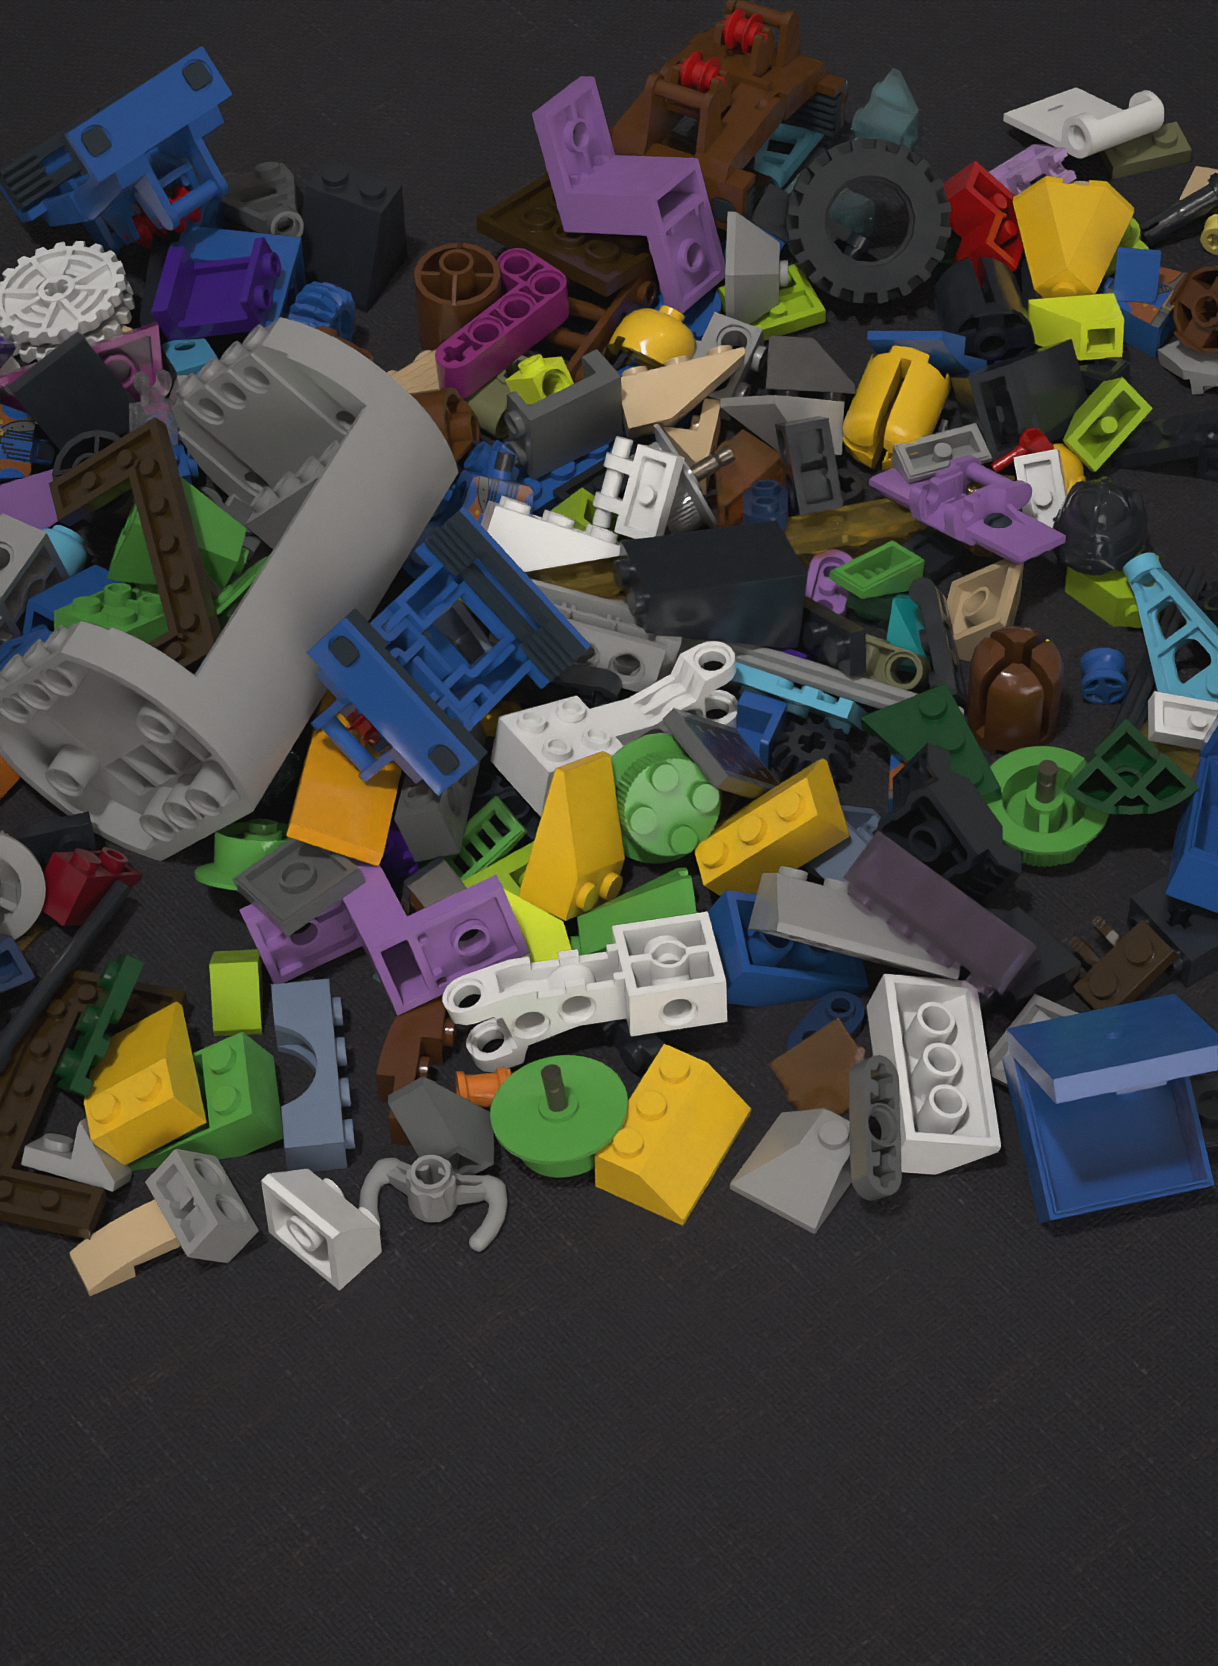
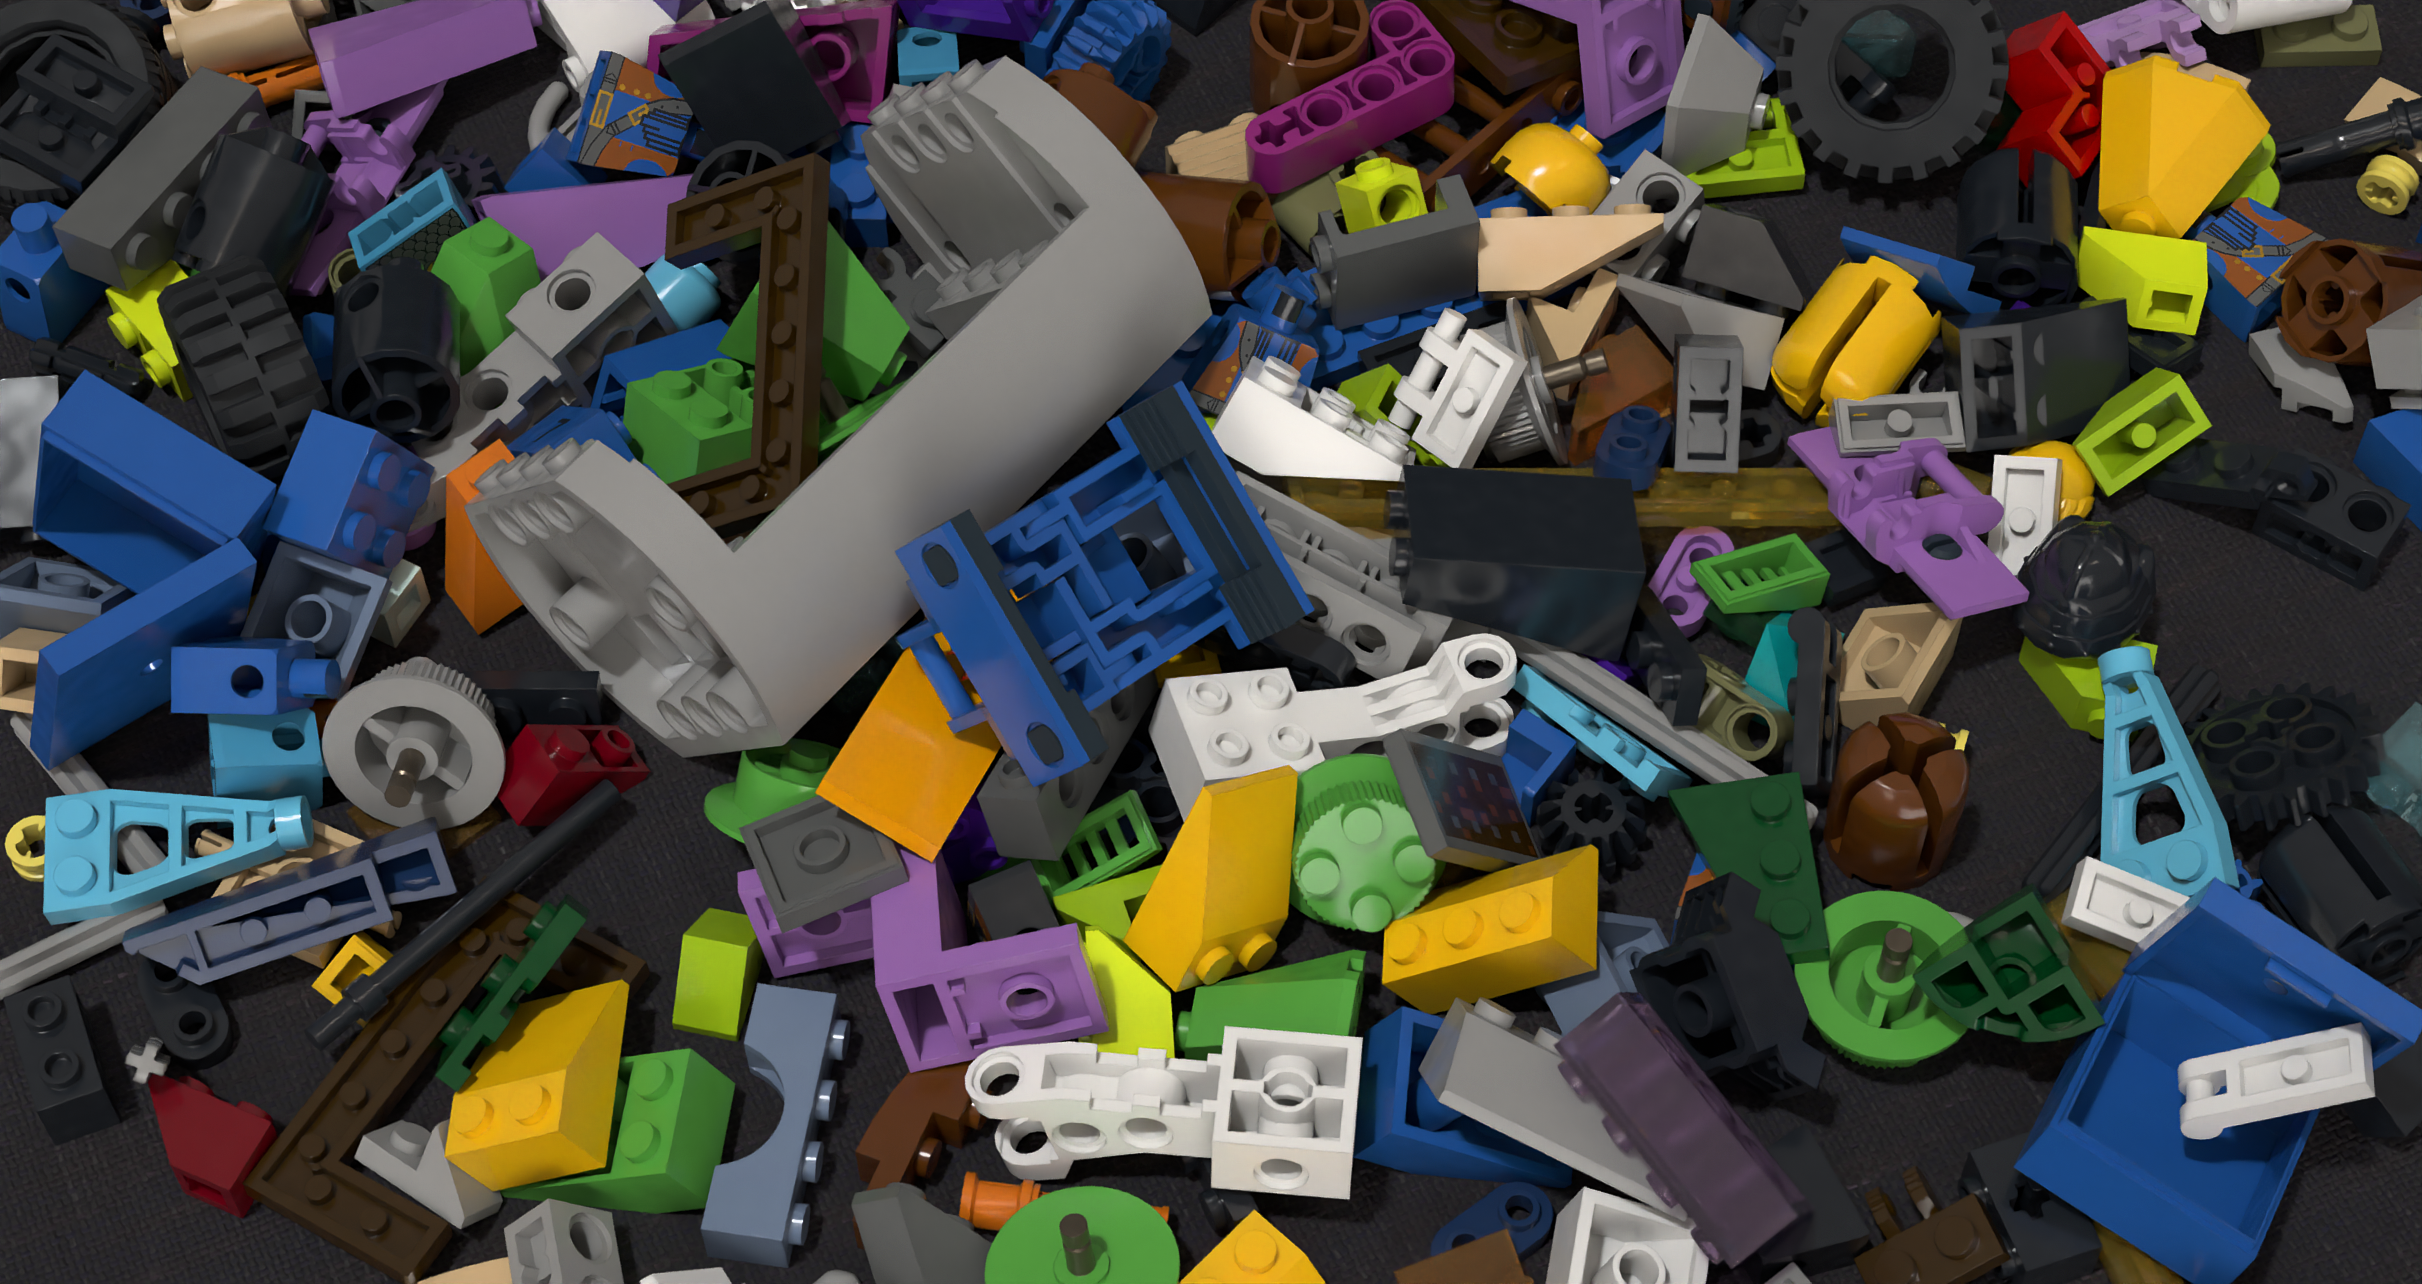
camera: 15 degrees right, 5 degrees up
(154, 403) = (841, 128): clear plate -> none
(1030, 442) = (2027, 436): red hand -> none
(1103, 676) = (2031, 802): blue wheel -> none
(1137, 275) = (2245, 225): blue slope -> none

